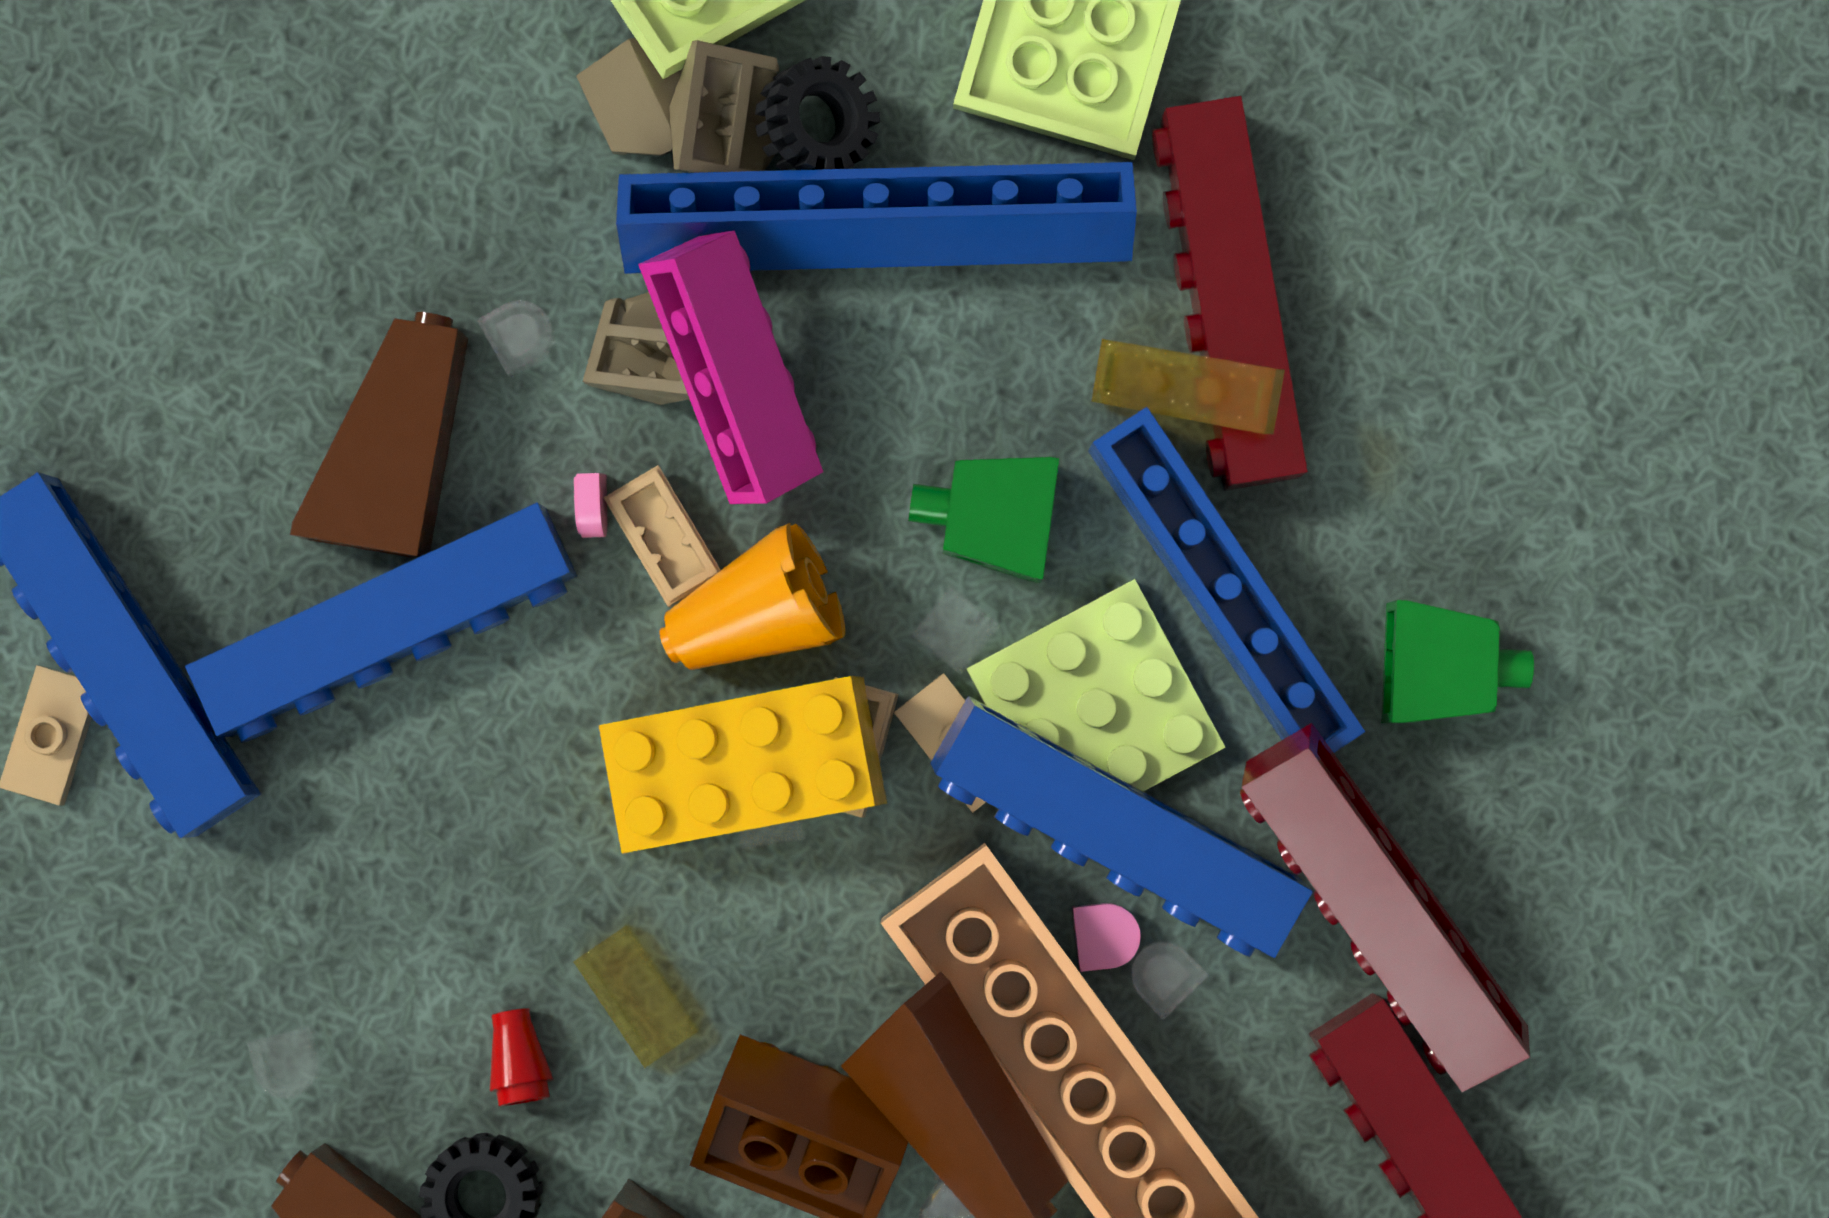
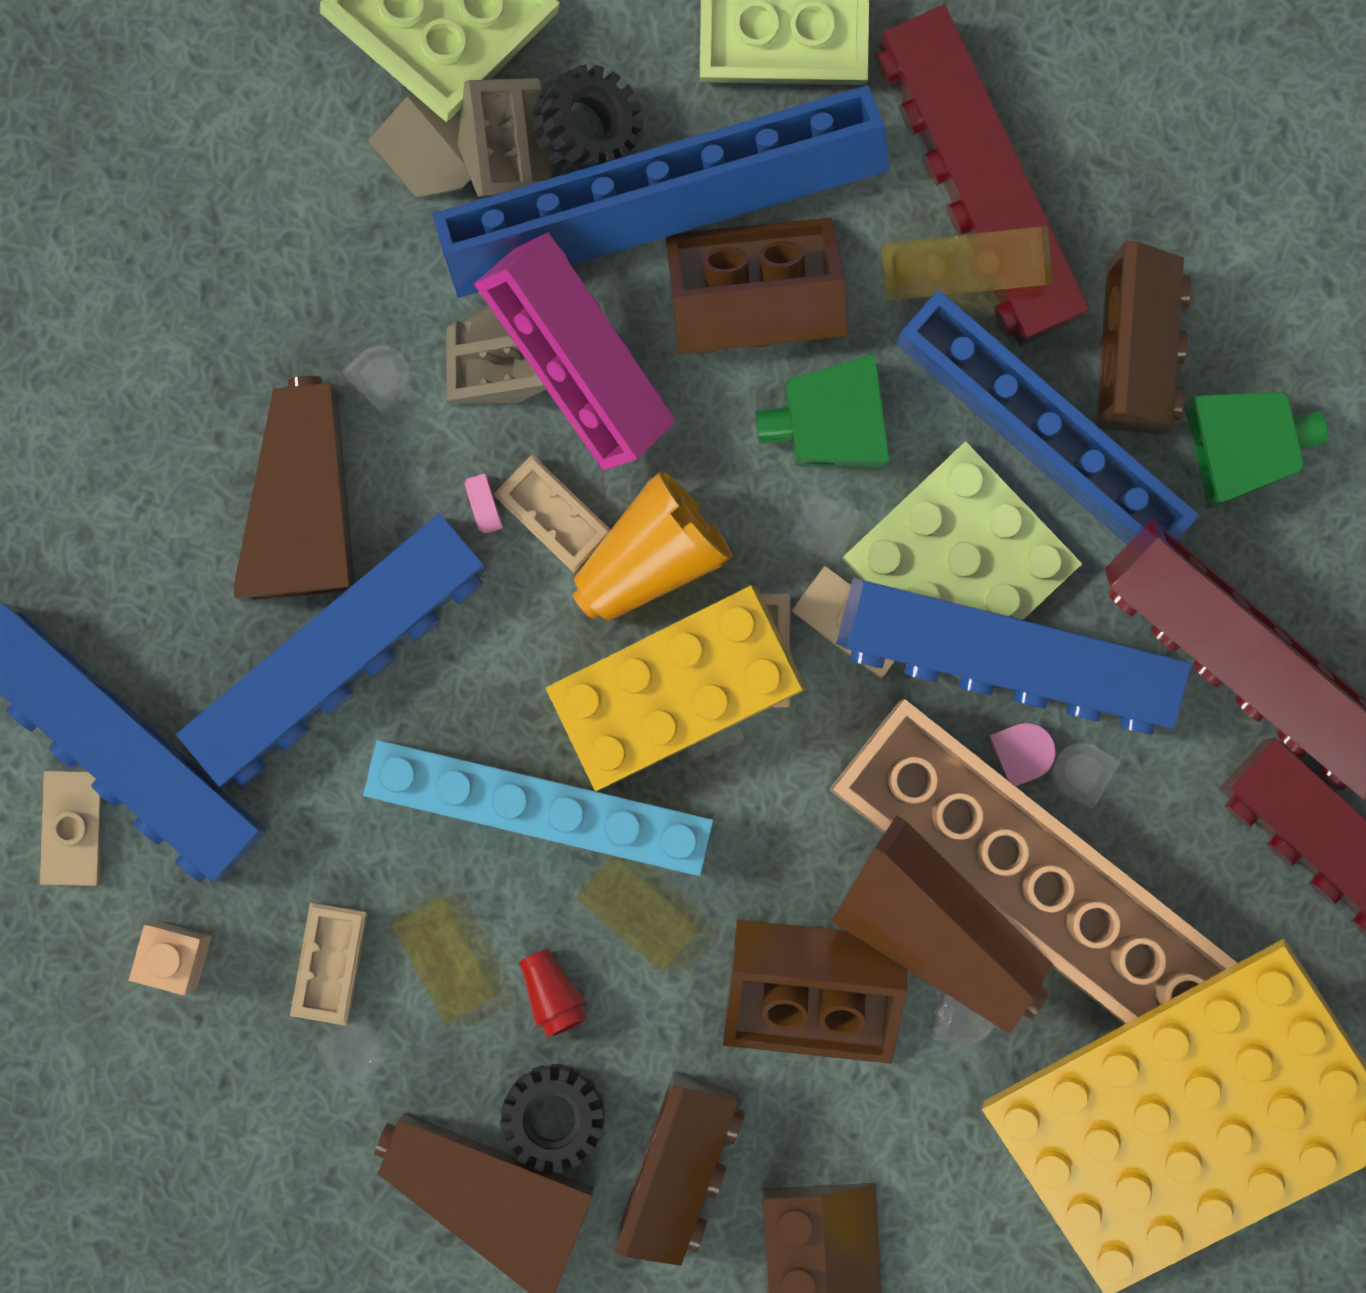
camera: 20 degrees left, 0 degrees up
(114, 906) = (170, 957): none -> light nougat brick
(286, 959) = (329, 963): none -> tan plate
(412, 988) = (443, 959): none -> clear yellow tile
(557, 852) = (538, 807): none -> medium azure brick
(951, 347) = (756, 285): none -> reddish brown slope
(1358, 521) = (1142, 340): none -> reddish brown slope

